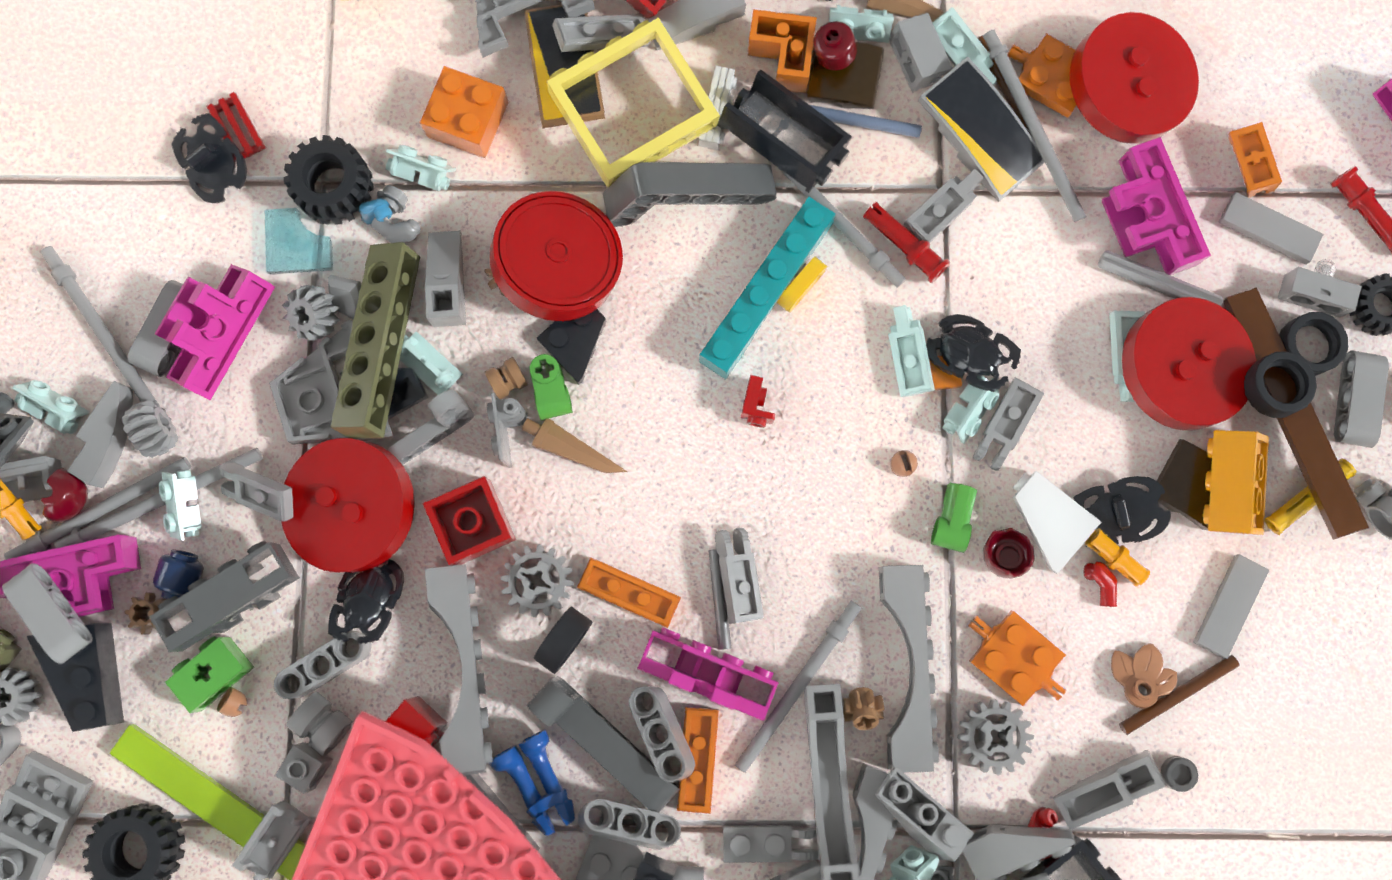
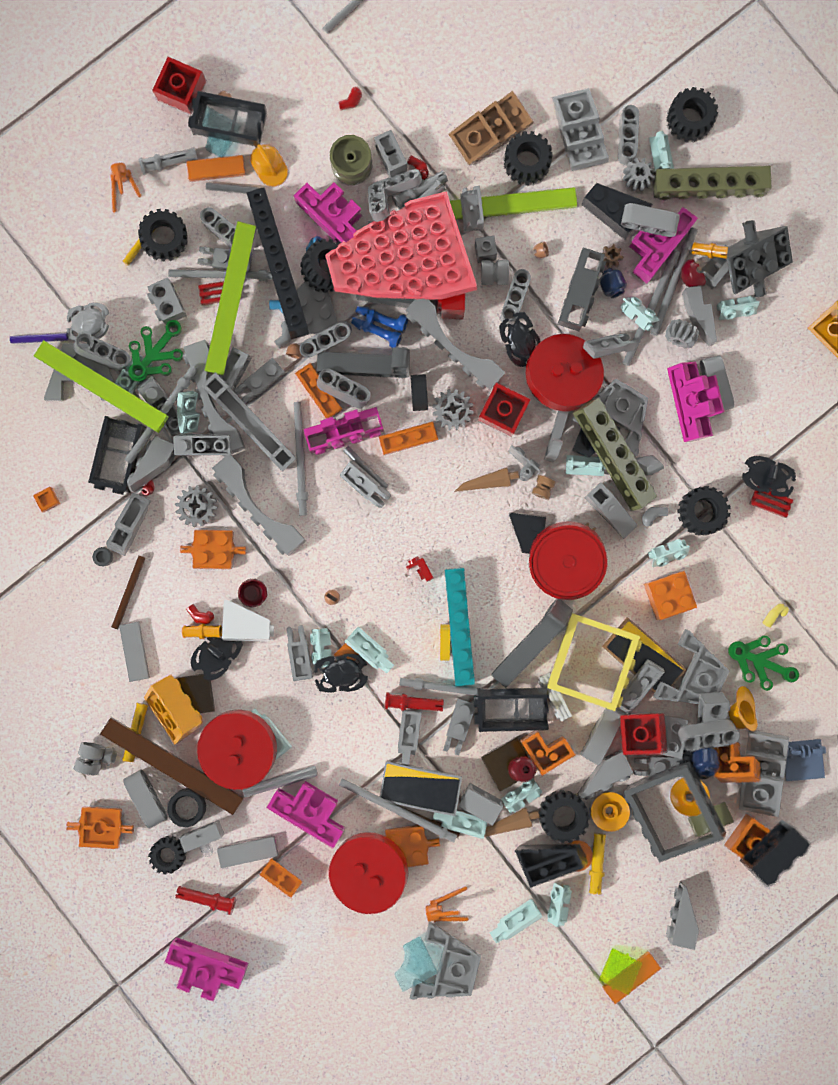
camera: 145 degrees right, 5 degrees up
(66, 277) = (785, 369): light grey bar -> none
(227, 667) = (566, 243): bright green brick -> none
(292, 246) = (694, 468): clear light blue tile -> none
(311, 312) = (657, 443): light grey gear -> none
(376, 209) = (669, 515): dark azure arm -> none
(395, 197) = (667, 526): light grey plate -> none
(550, 393) = (516, 496): bright green piece -> none
(686, 846) = (293, 351): none -> nougat hinge
(863, 708) = (263, 471): medium nougat gear -> none
(867, 170) = (459, 724): none -> light grey hinge
(870, 122) = (481, 747): sand blue bar -> none
(953, 526) = (288, 588): bright green piece -> none
(1144, 670) = (152, 590): nougat plate -> none
(1299, 371) = (185, 785): black tyre -> none

